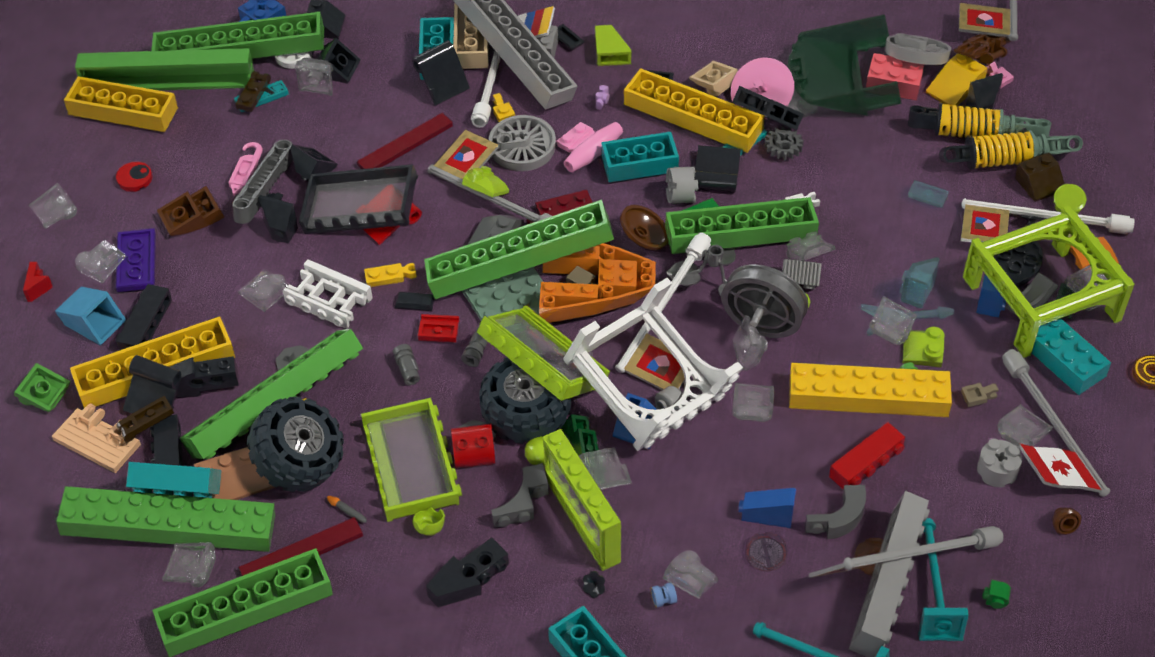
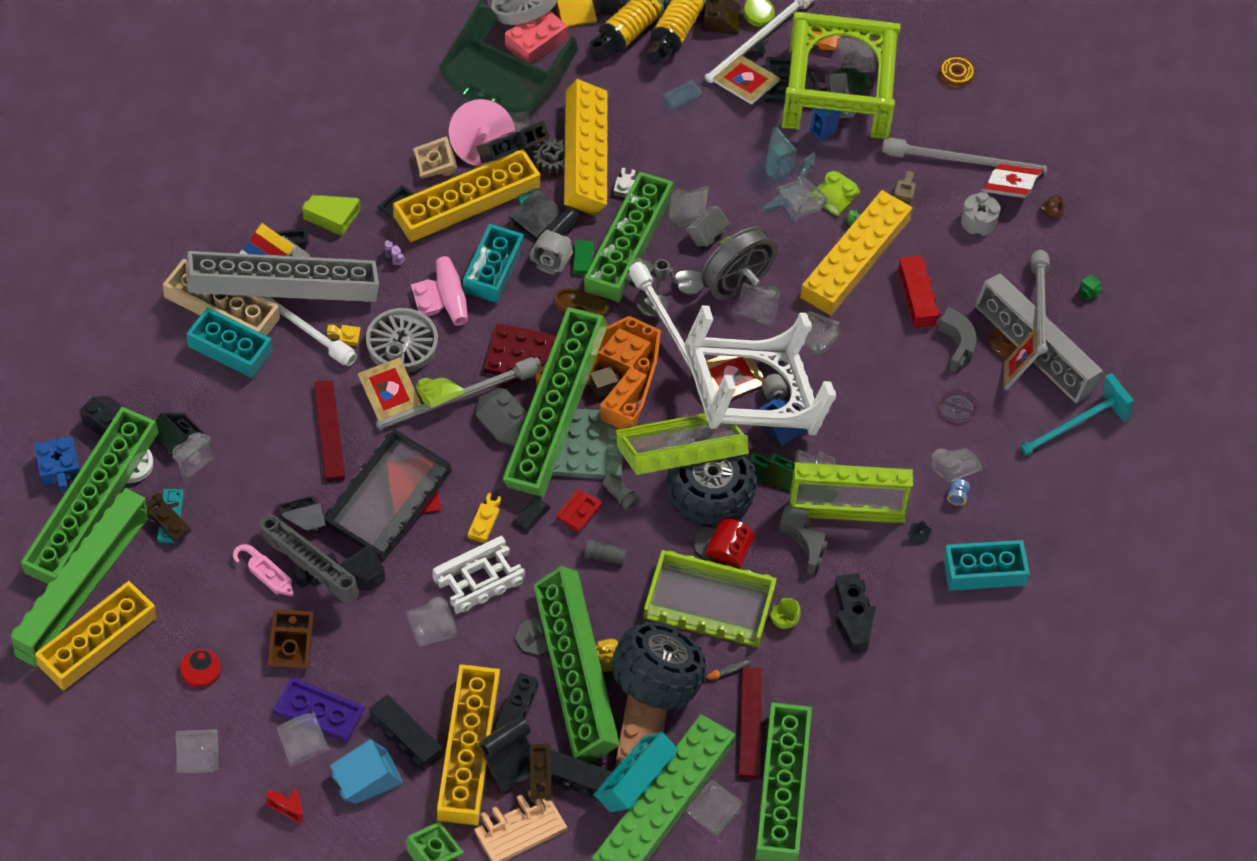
camera: 65 degrees left, 5 degrees up
(441, 72) = (271, 351): black door -> none
(535, 451) = (763, 504): lime hair -> none
(769, 507) = (927, 378): blue slope -> none
(807, 155) = (585, 147): none -> yellow brick
(940, 622) = (1098, 332): teal tile -> none
(1023, 427) = (959, 180): clear slope -> none
(1069, 356) = (918, 110): teal brick -> none

